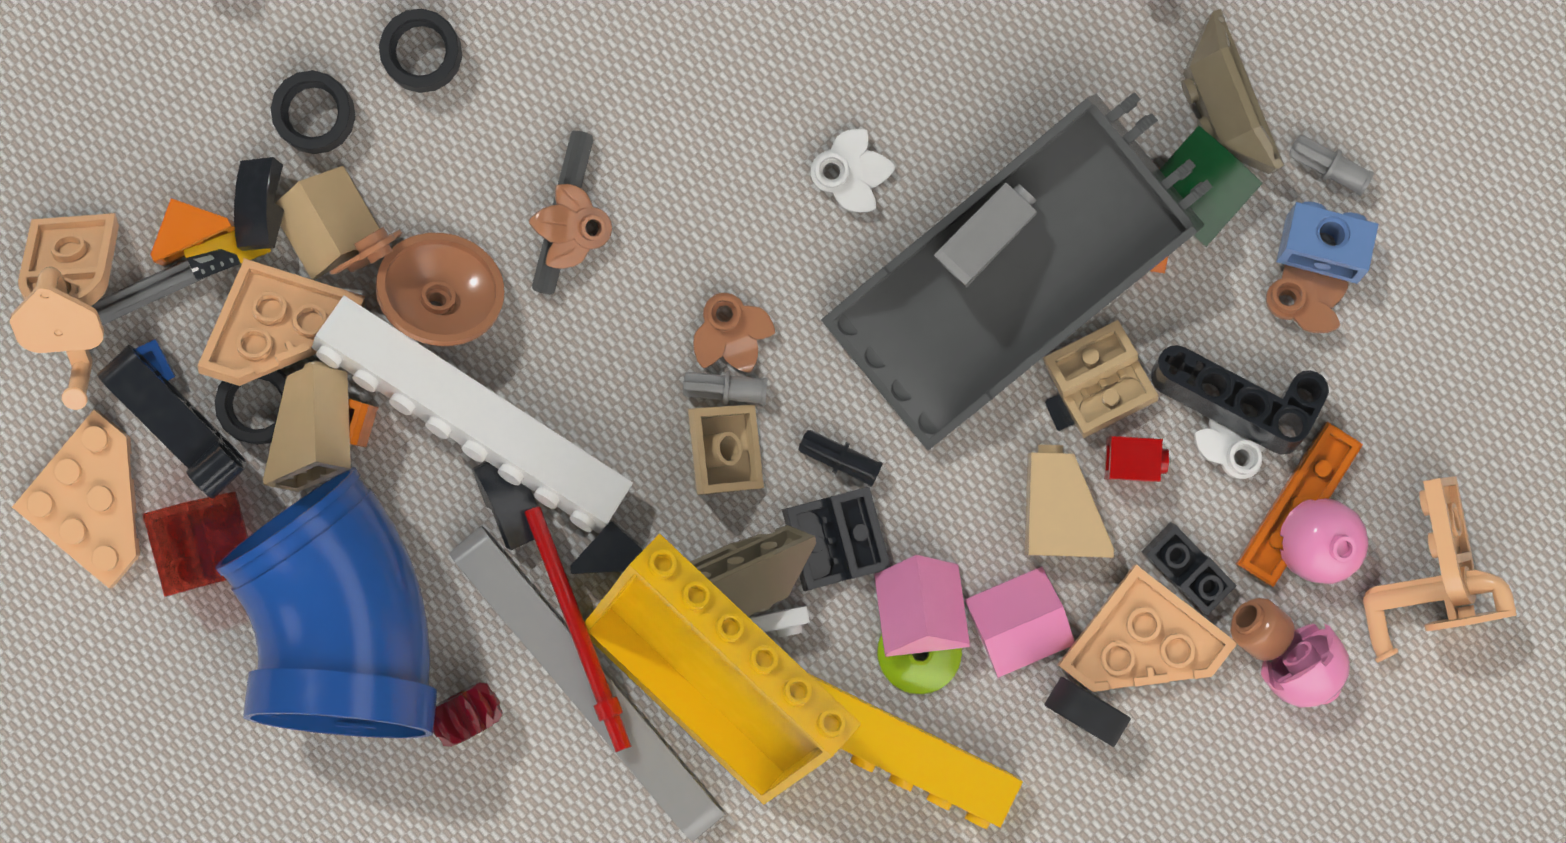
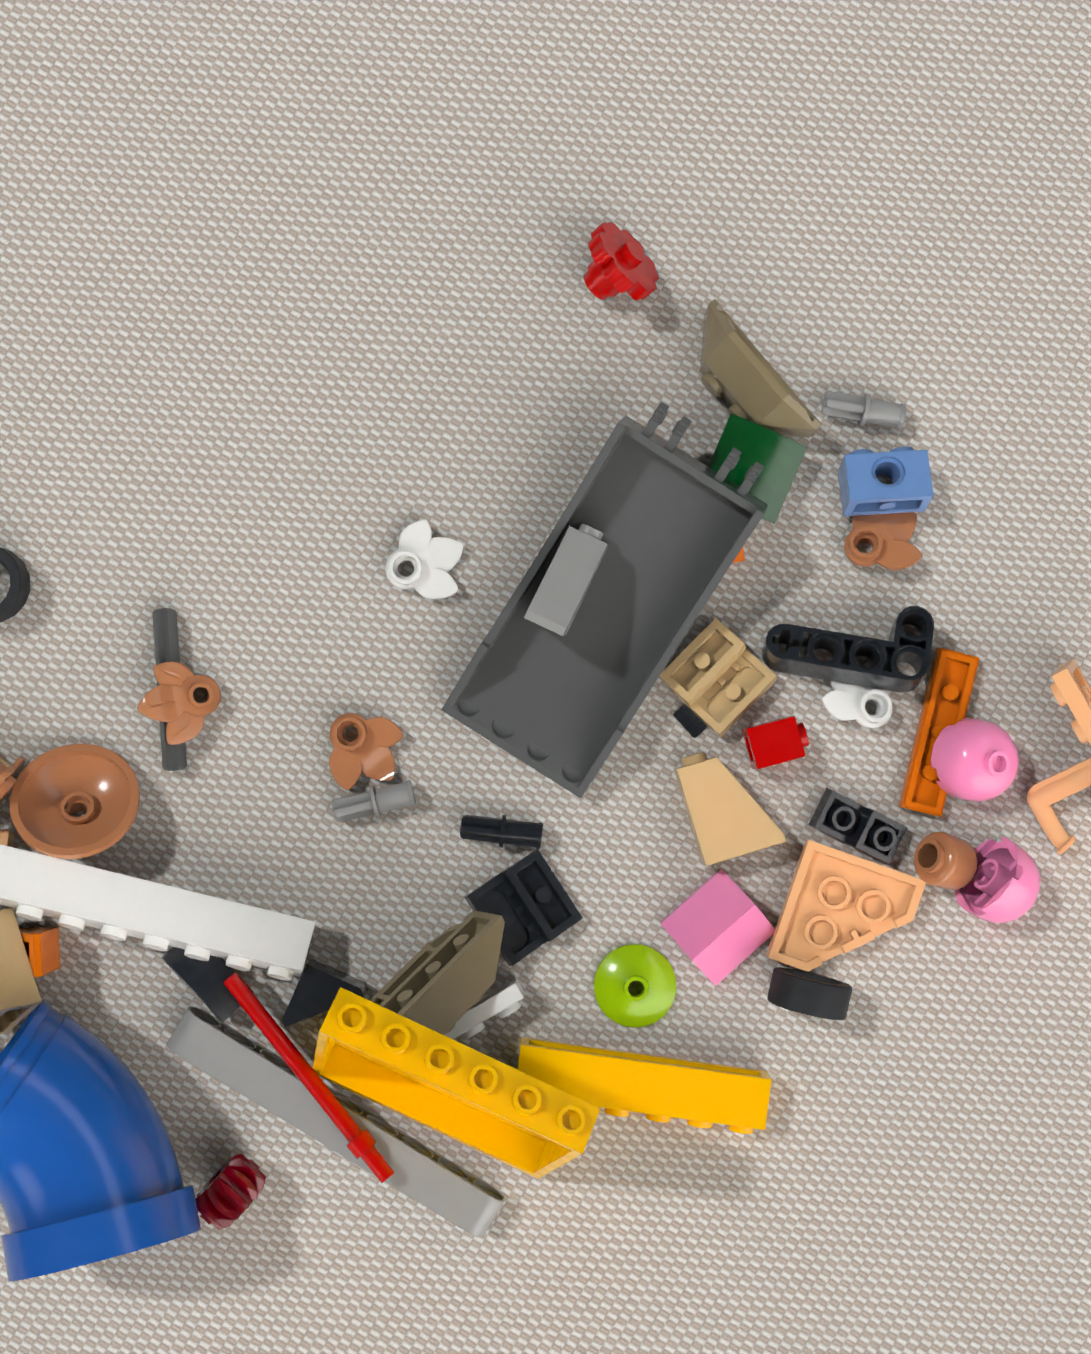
camera: 25 degrees left, 0 degrees up
(725, 449) = (391, 860): tan slope -> none
(921, 607) = (623, 946): bright pink slope -> none

